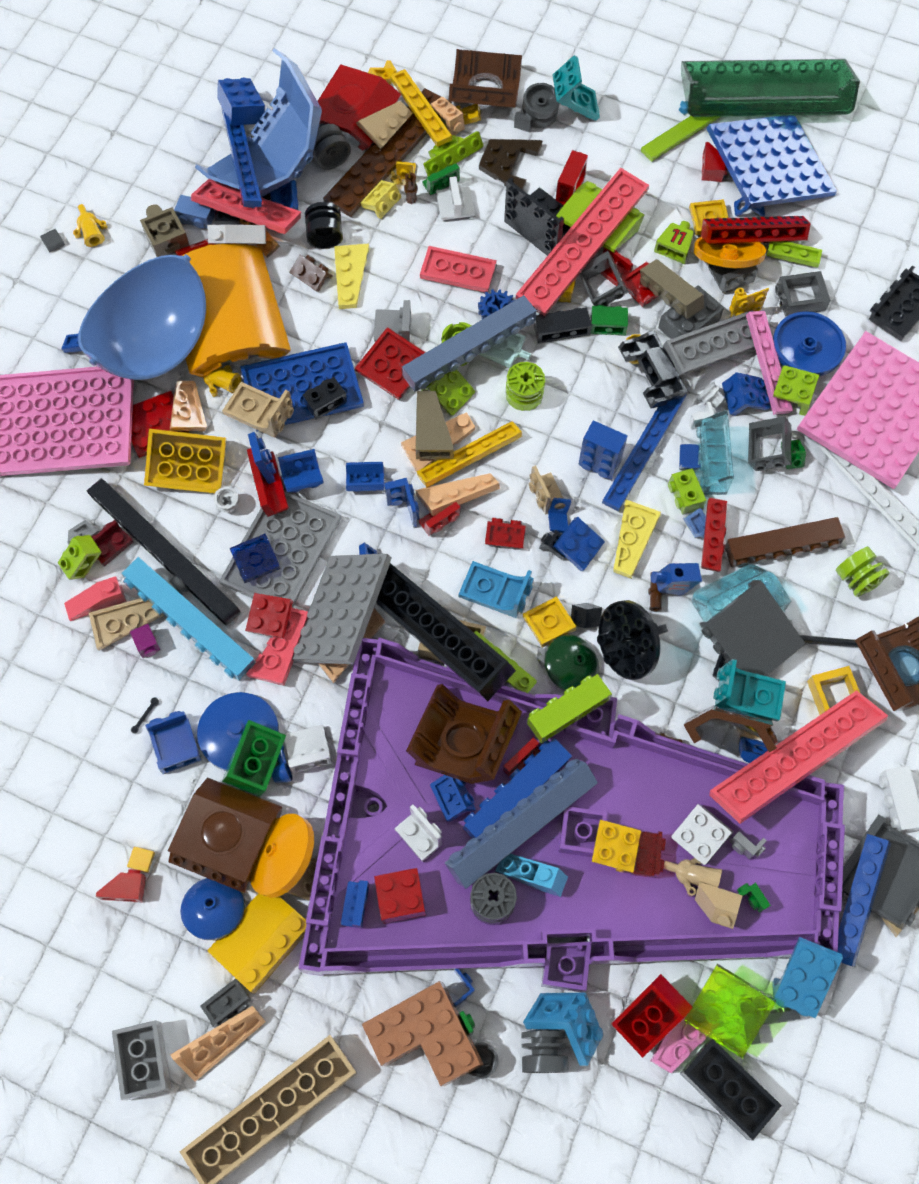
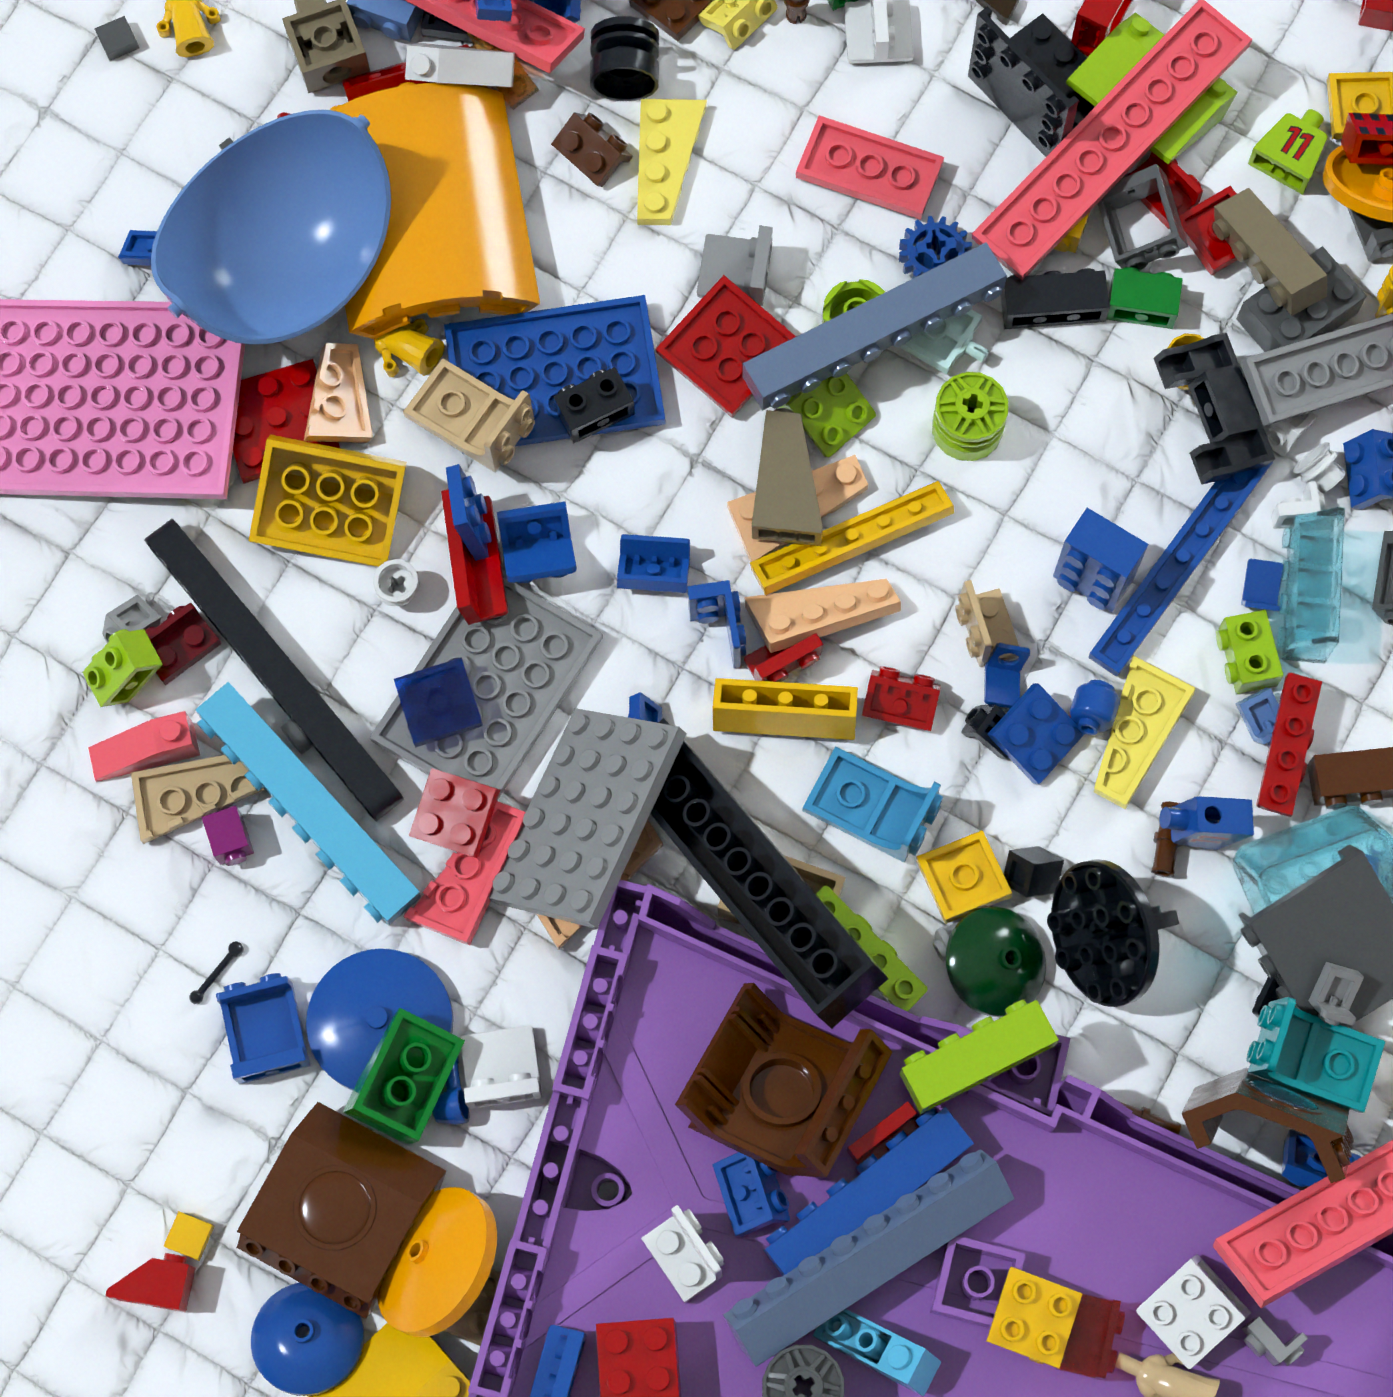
camera: 10 degrees right, 5 degrees up
(443, 543) = (784, 708): none -> yellow brick
(609, 526) = (1094, 707): none -> blue head
(756, 658) = (1335, 994): none -> light grey bracket

